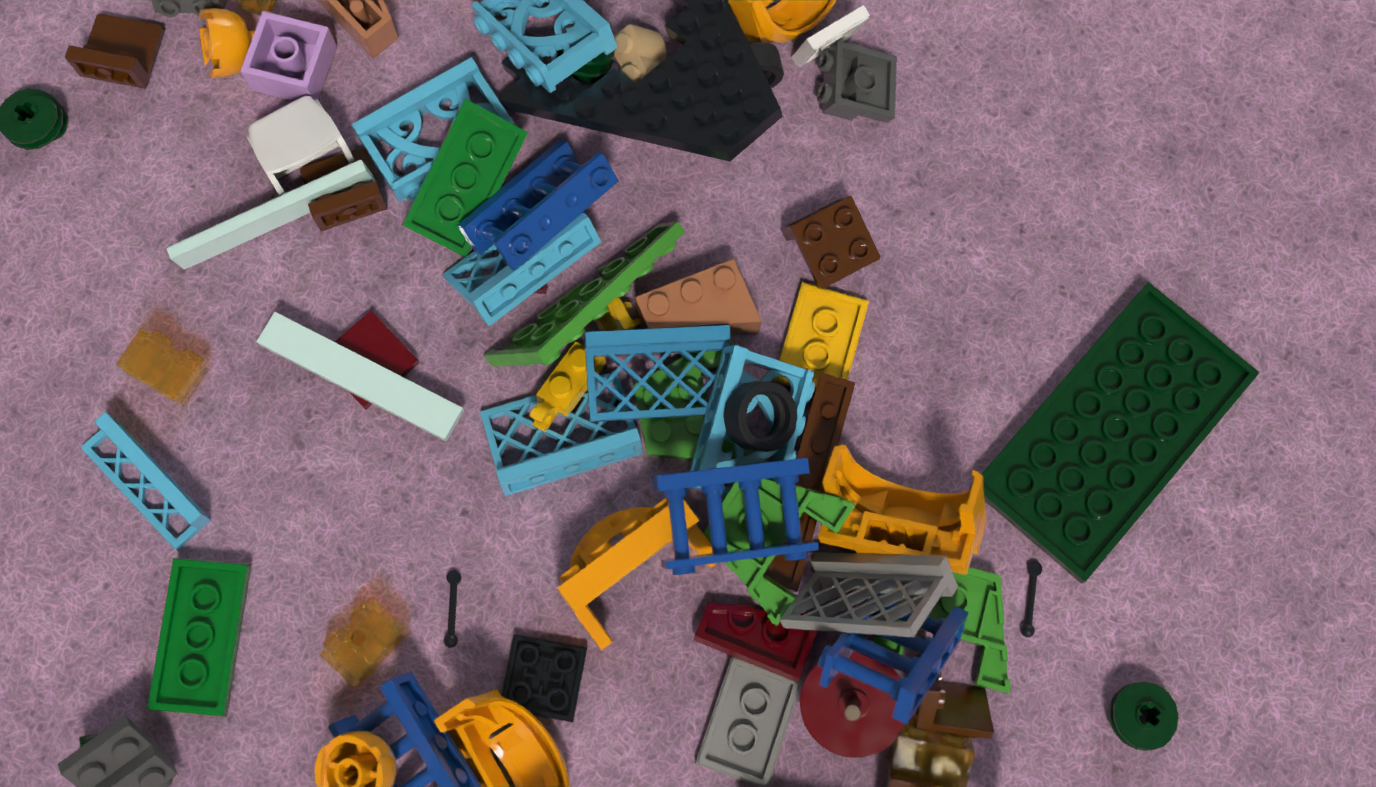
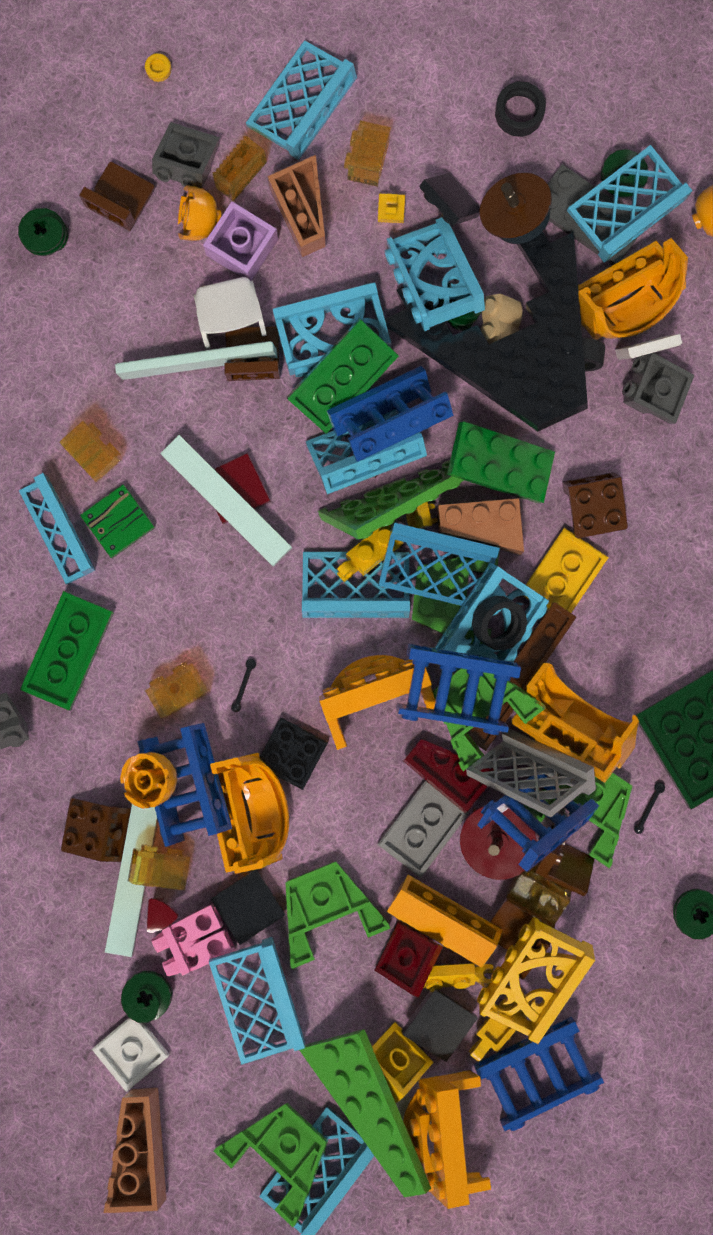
camera: 25 degrees right, 10 degrees up
(224, 447) = (117, 521): none -> green tile
(696, 223) = (500, 462): none -> green plate

